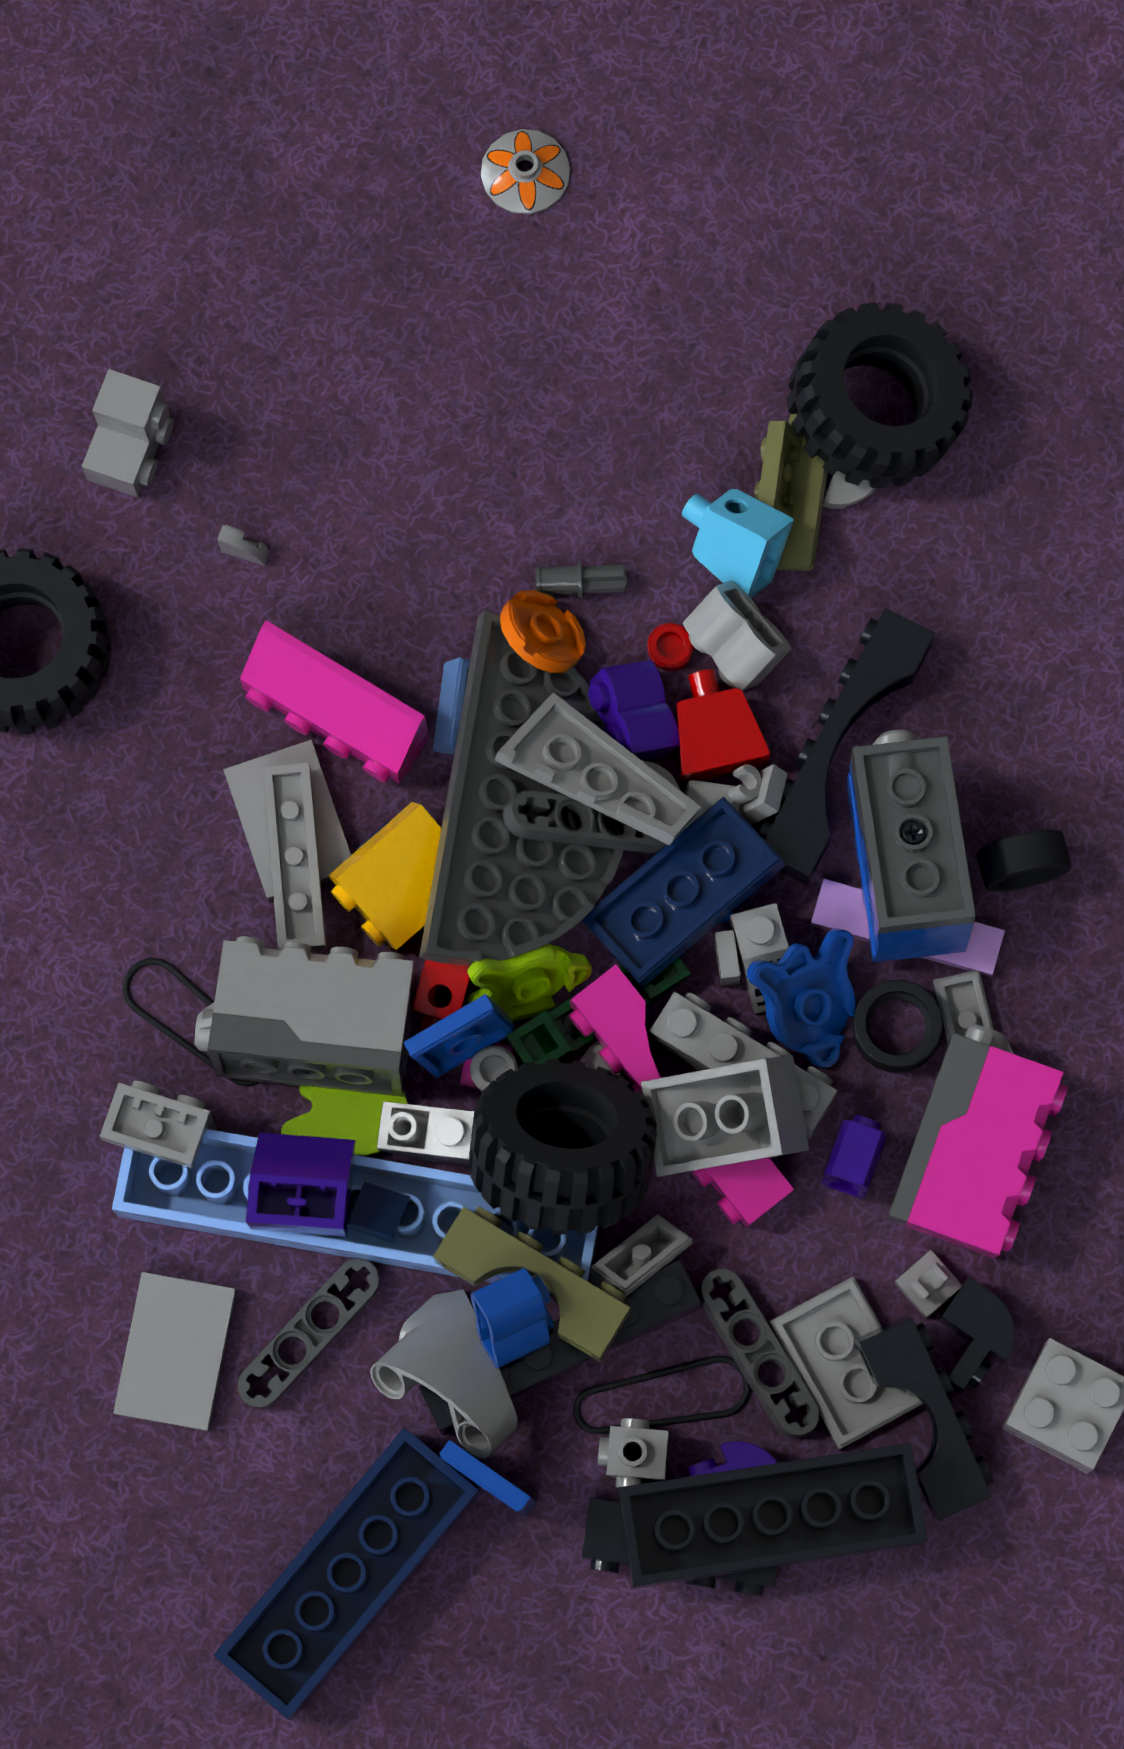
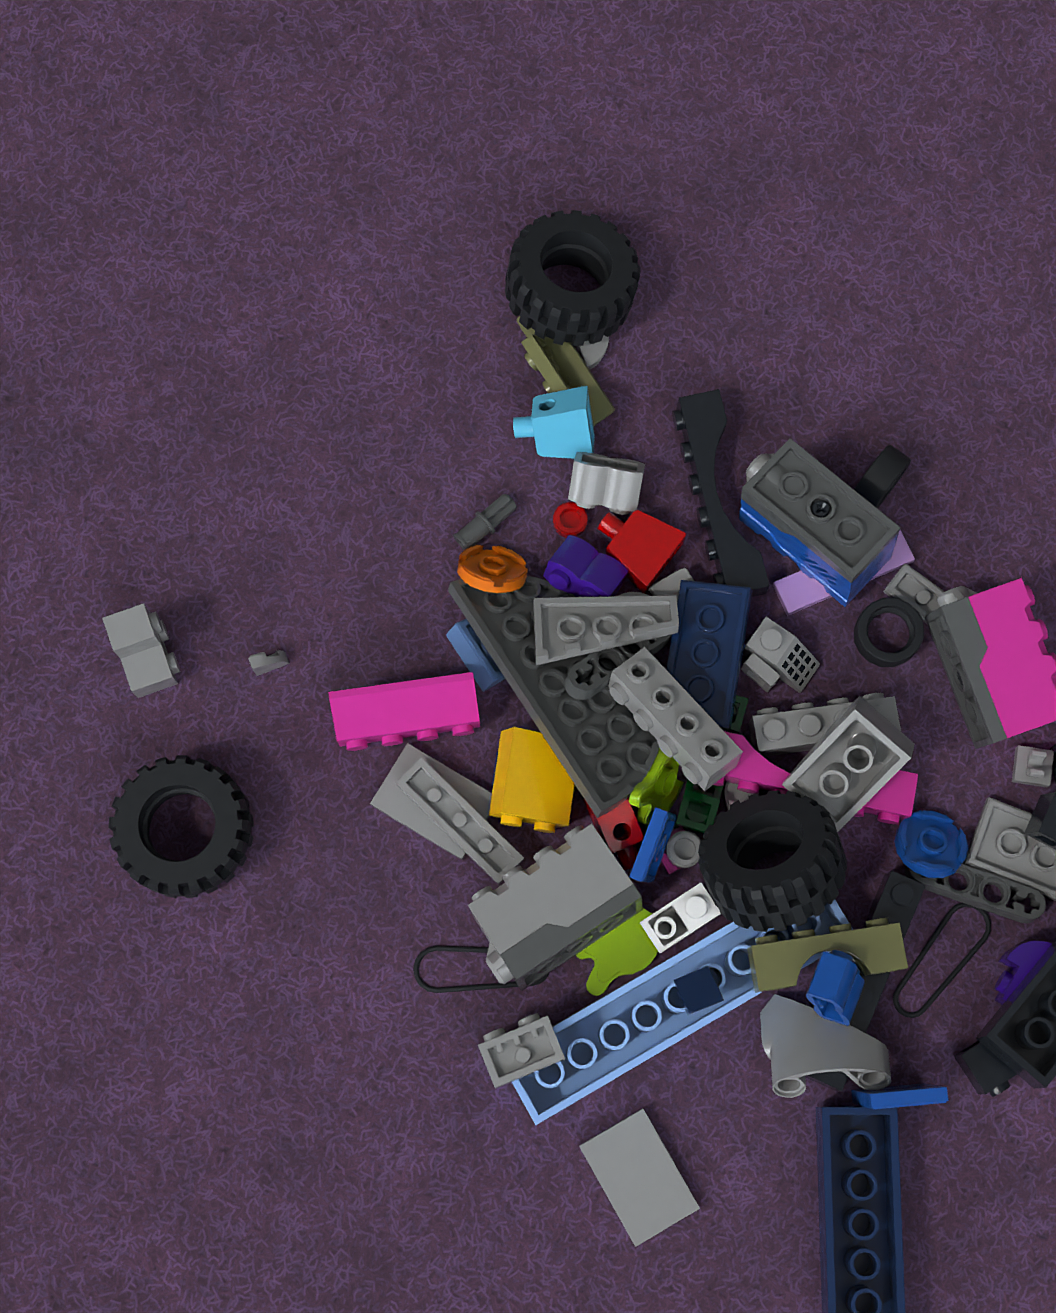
camera: 45 degrees left, 0 degrees up
(301, 1184) = (641, 1012): dark purple slope -> none
(303, 1328) = (703, 1097): dark grey beam -> none
(529, 190) = (252, 326): light grey dish -> none
(584, 925) = (674, 719): none -> light grey brick
(640, 1255) = (866, 888): light grey slope -> none
(650, 1442) = (972, 1001): light grey brick -> none
(749, 1272) = (931, 844): none -> blue tile
(760, 791) = (697, 560): light grey tile -> none
(809, 996) = (828, 655): blue tile -> none
(855, 1156) = (936, 726): dark purple brick -> none

